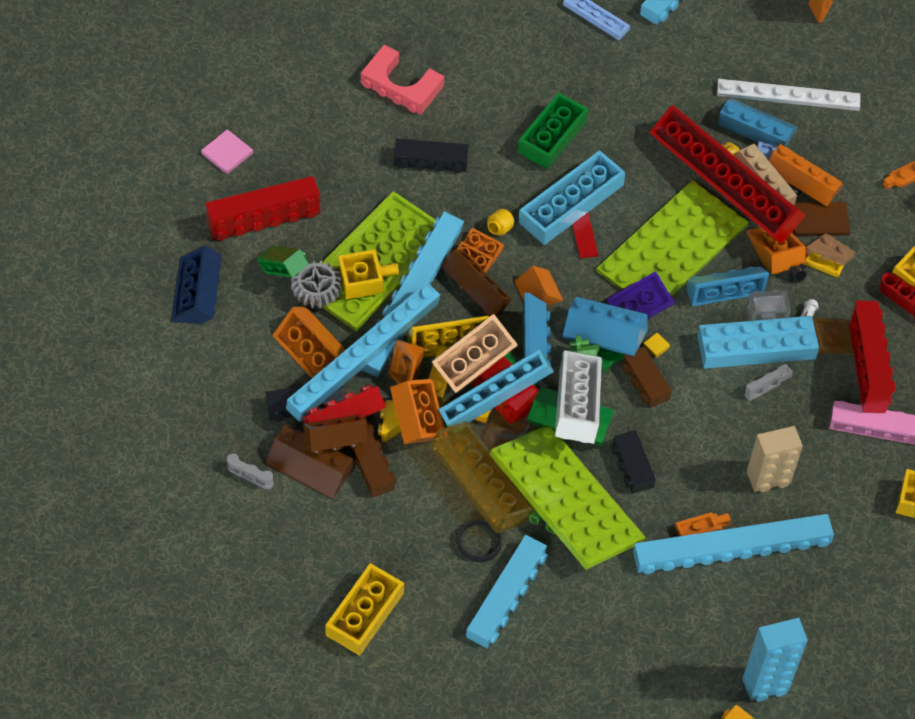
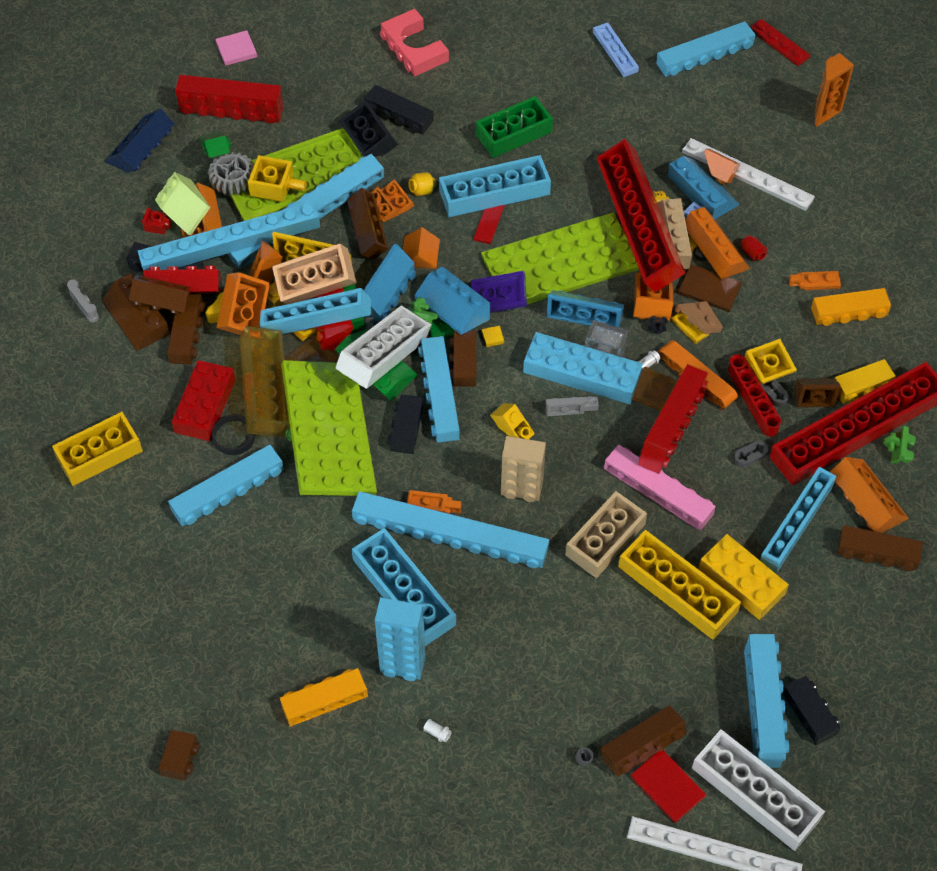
camera: 30 degrees right, 0 degrees up
(269, 362) = (156, 221): none -> red brick
(291, 333) = (182, 202): none -> yellowish green slope
(418, 188) = (368, 131): none -> black slope
(433, 519) = (203, 400): none -> red brick
(642, 416) = (440, 389): none -> medium azure brick
(719, 608) = (401, 580): none -> medium azure brick
(726, 419) = (511, 421): none -> yellow slope
(765, 97) = (721, 166): none -> orange slope
(837, 165) = (754, 248): none -> red brick
(843, 300) = (717, 390): none -> orange beam
(872, 488) = (606, 534): none -> tan brick

